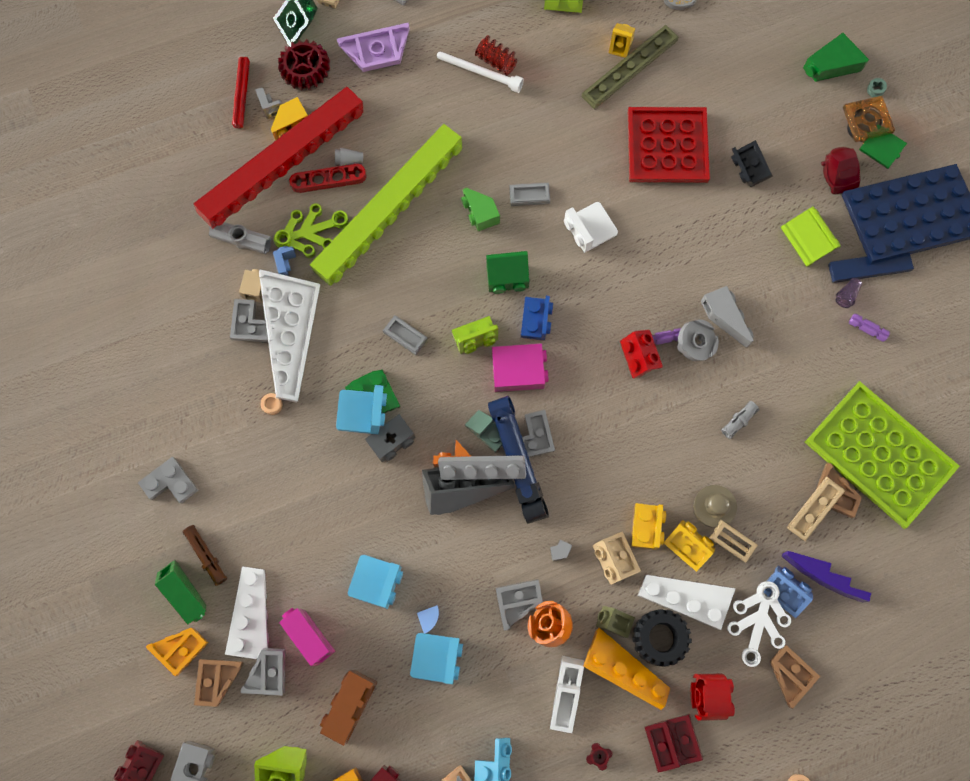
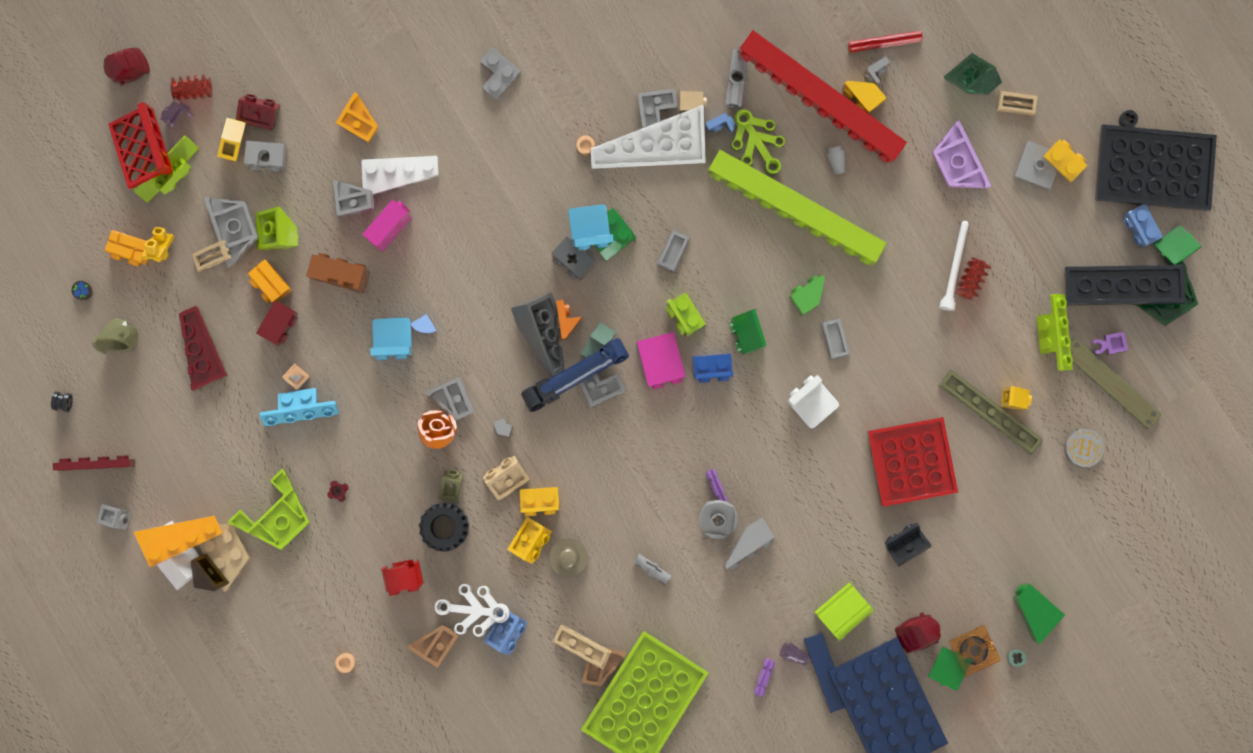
camera: 80 degrees right, 10 degrees up
(180, 592) = (405, 108): green slope -> none
(209, 563) = (435, 126): reddish brown pin -> none
(214, 680) = (338, 156): medium nougat wing -> none
(304, 56) = (931, 97): dark red gear -> none
(327, 174) = (810, 146): red beam -> none
(375, 581) = (446, 273): medium azure bracket -> none
(482, 467) = (559, 344): light grey plate -> none
(567, 694) = (383, 455): white slope -> none
(621, 668) = (411, 499): light orange wing -> none
(640, 353) = (696, 469): red bracket -> none
(673, 743) = (360, 552): dark red slope -> none
(695, 600) = (482, 551): white wing -> none
(718, 531) = (546, 582): tan tile -> none
(820, 573) = (527, 656): dark purple slope -> none

